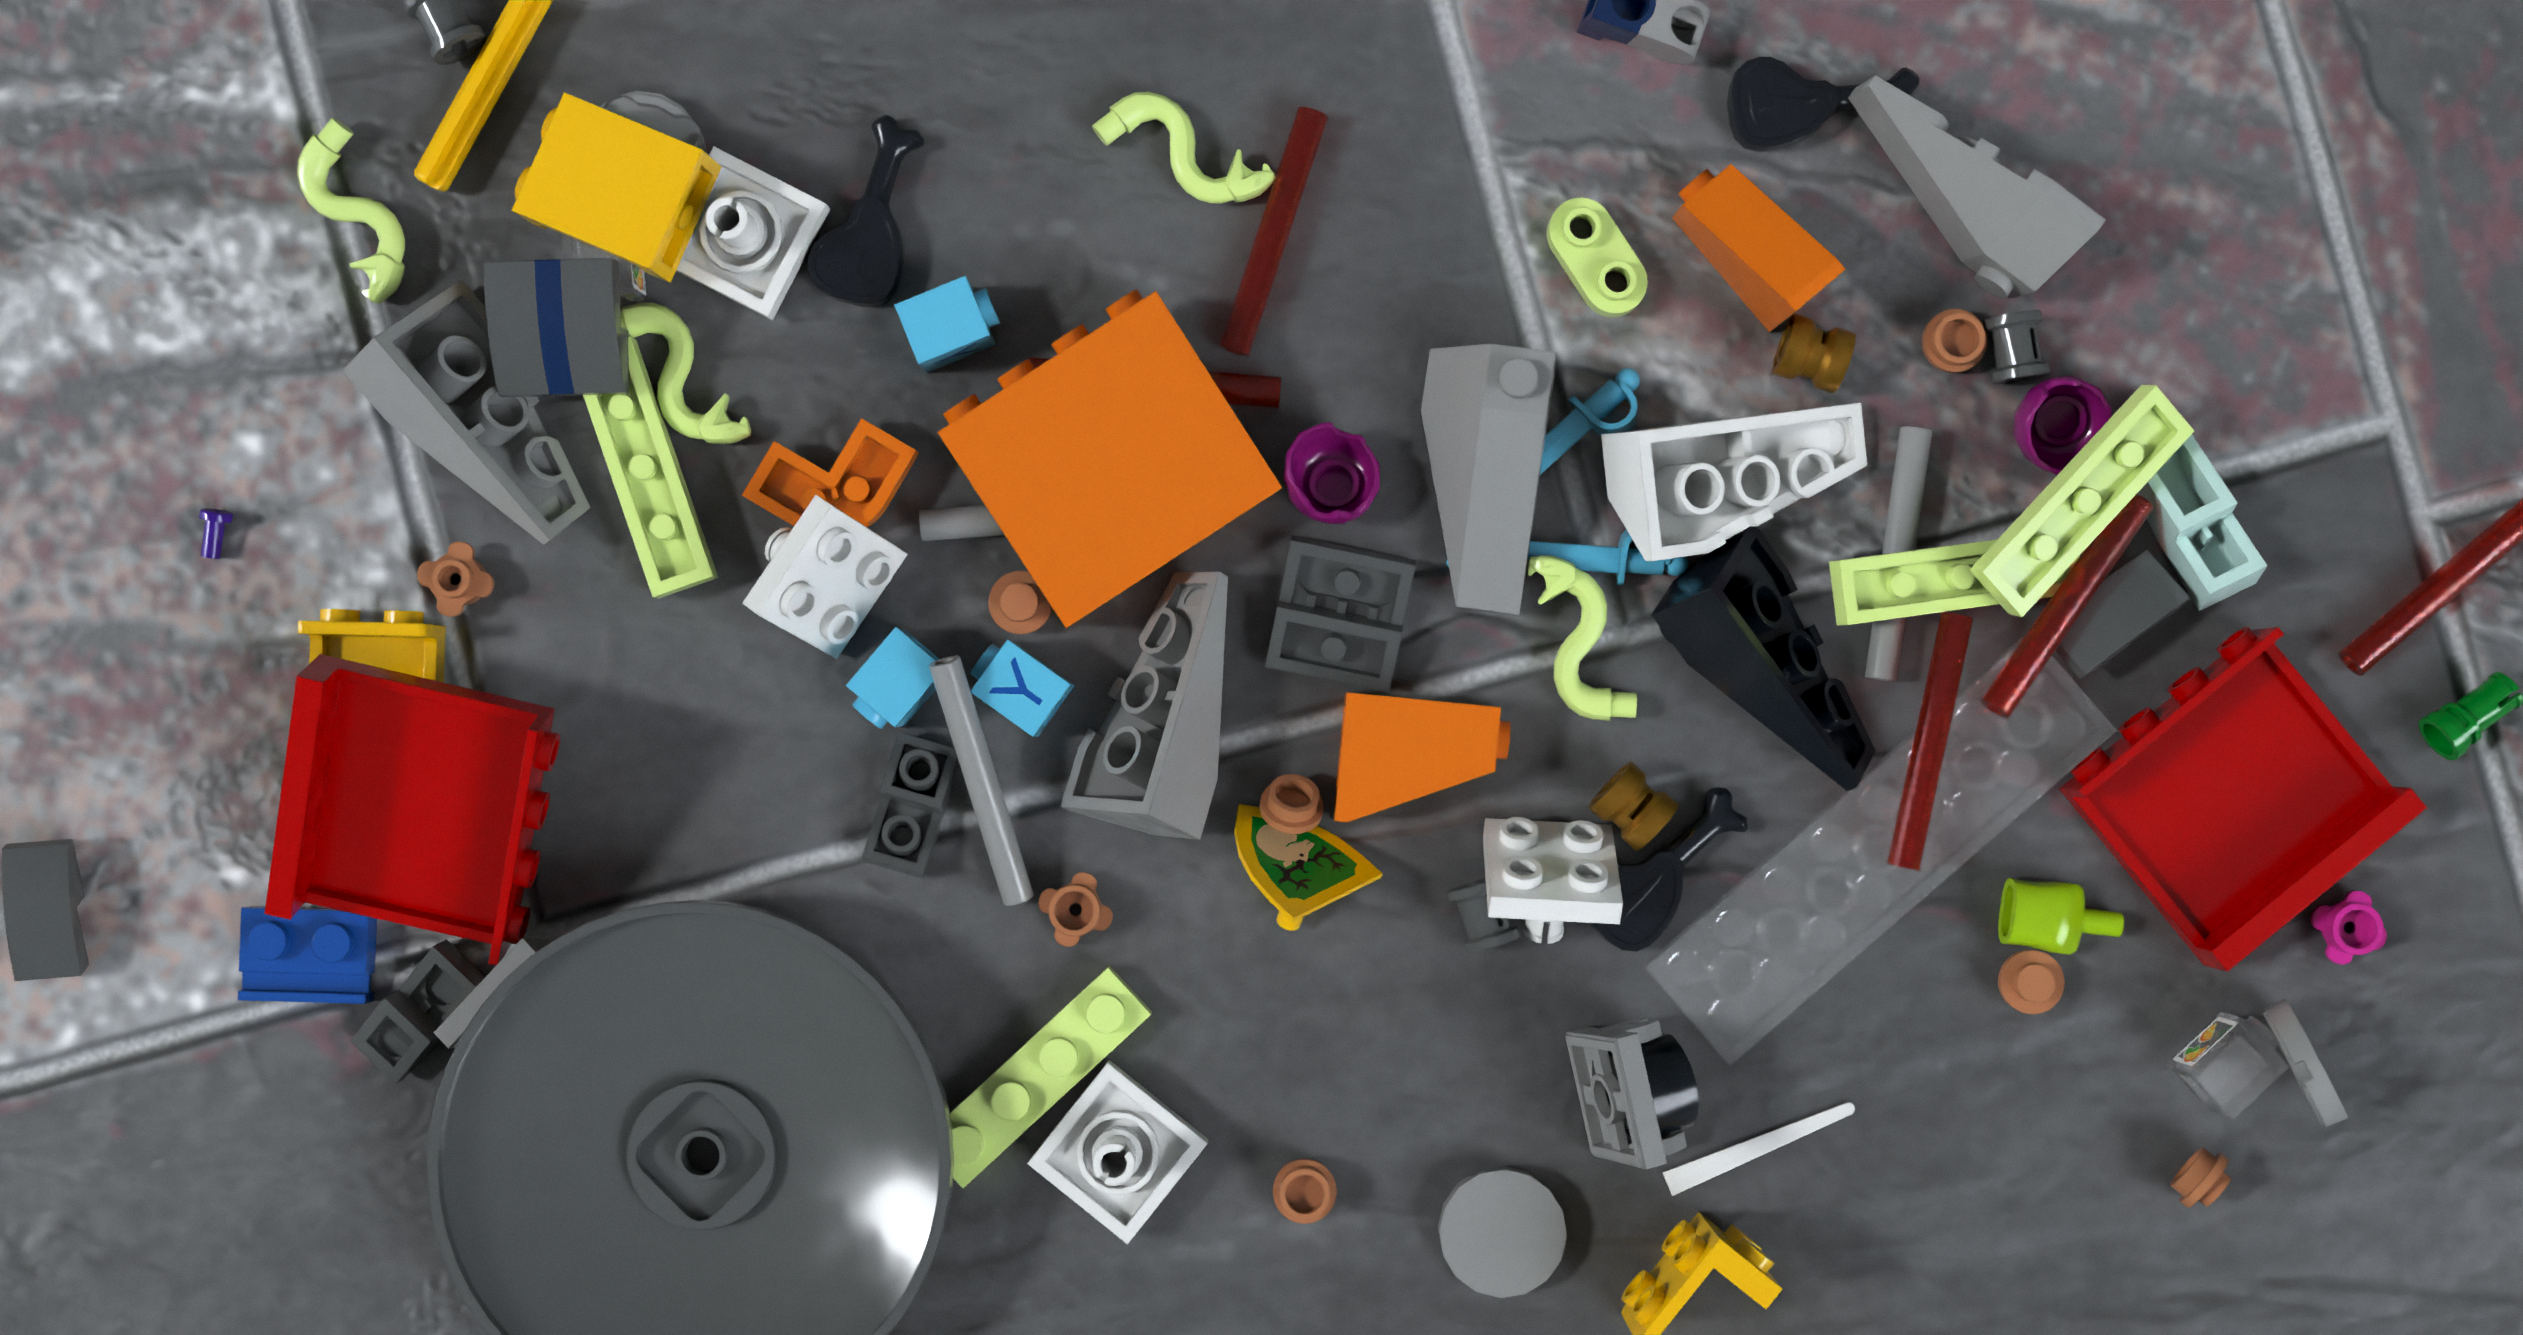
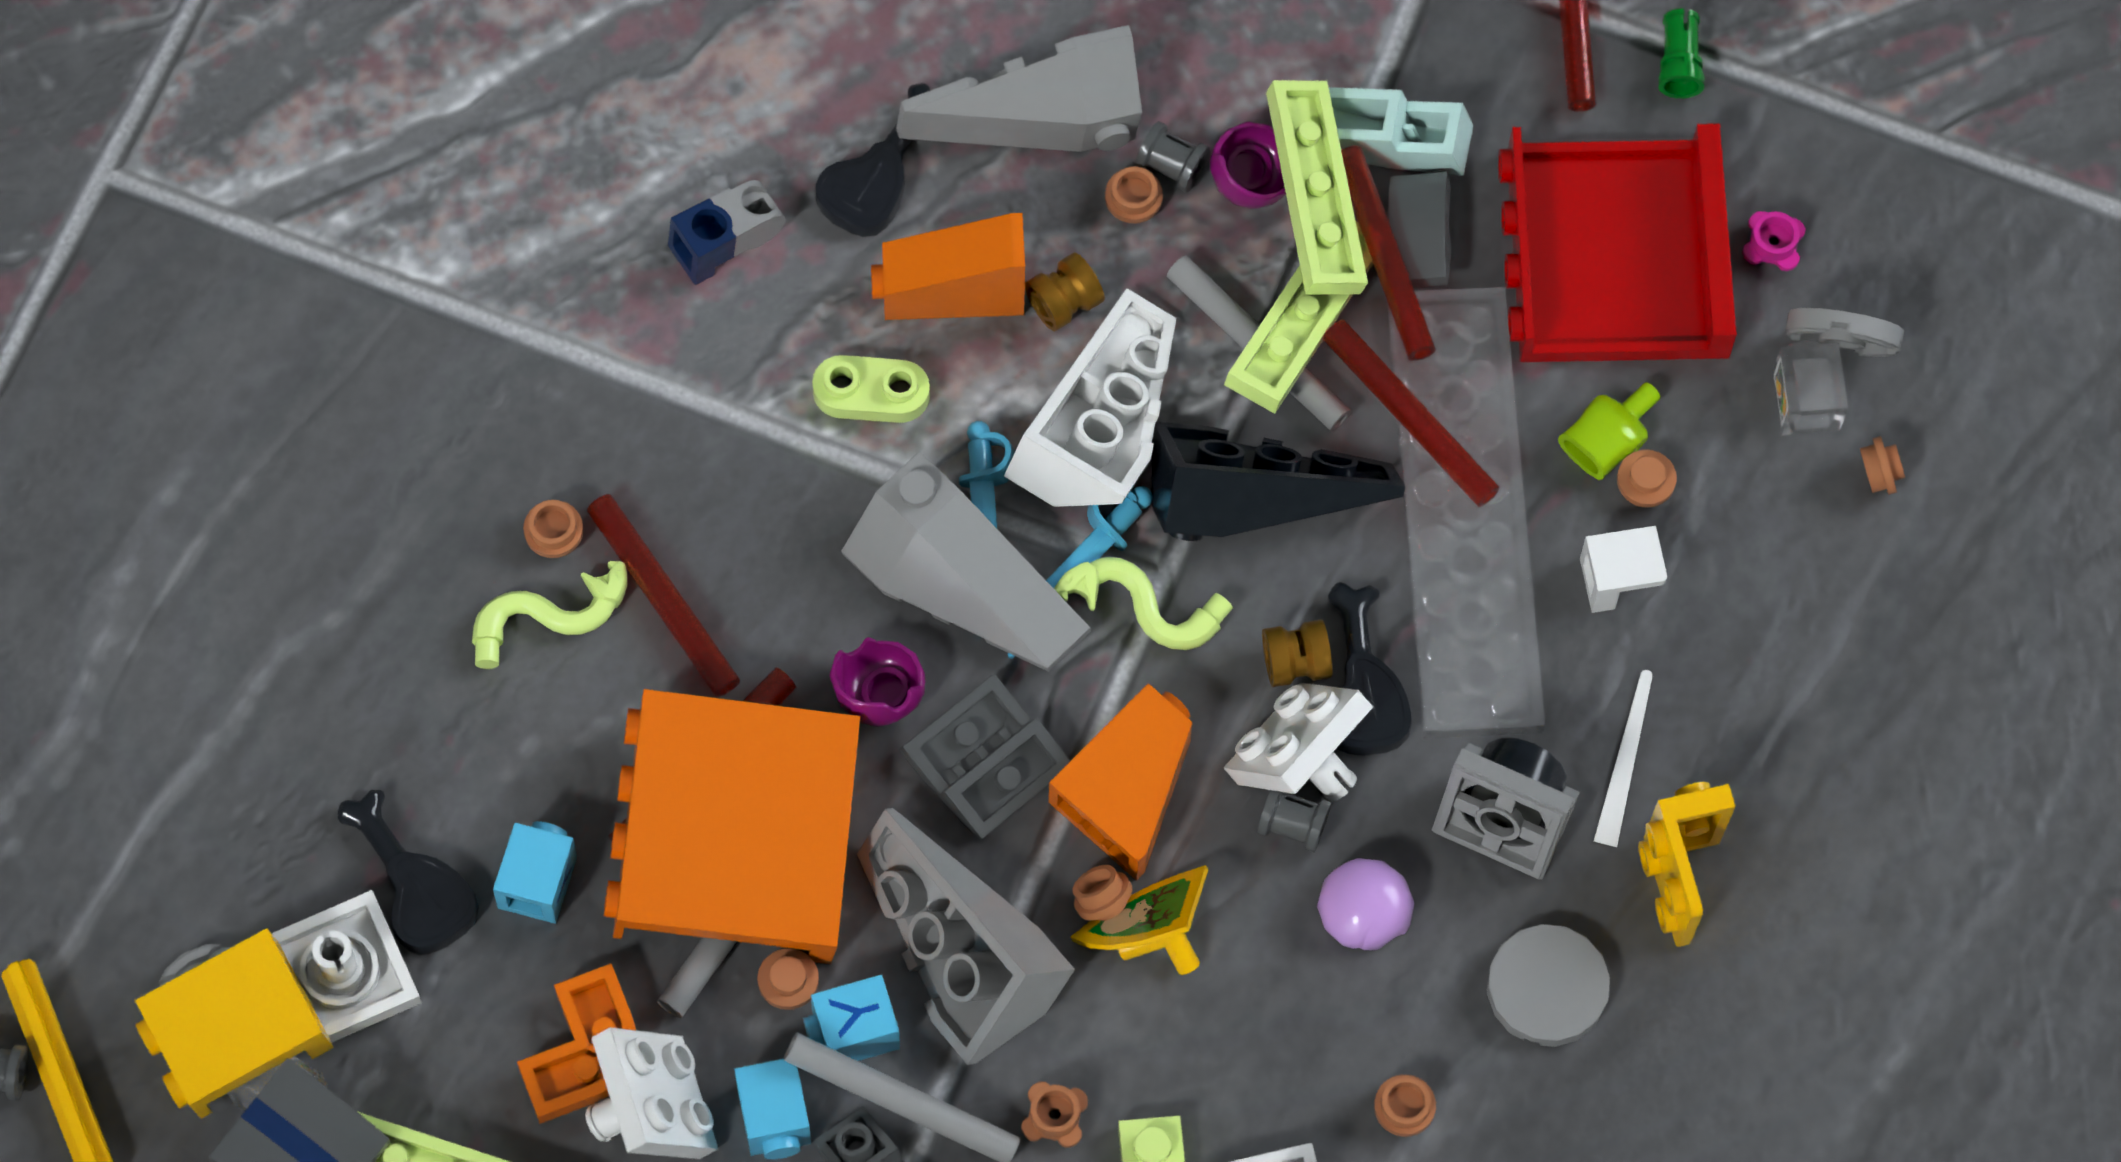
camera: 60 degrees left, 20 degrees down
(713, 426) = (465, 1107): yellowish green animal -> none
(1260, 93) = (553, 529): none -> nougat plate
(1455, 1028) = (1365, 904): none -> lavender hair
(1929, 1025) = (1621, 563): none -> white panel

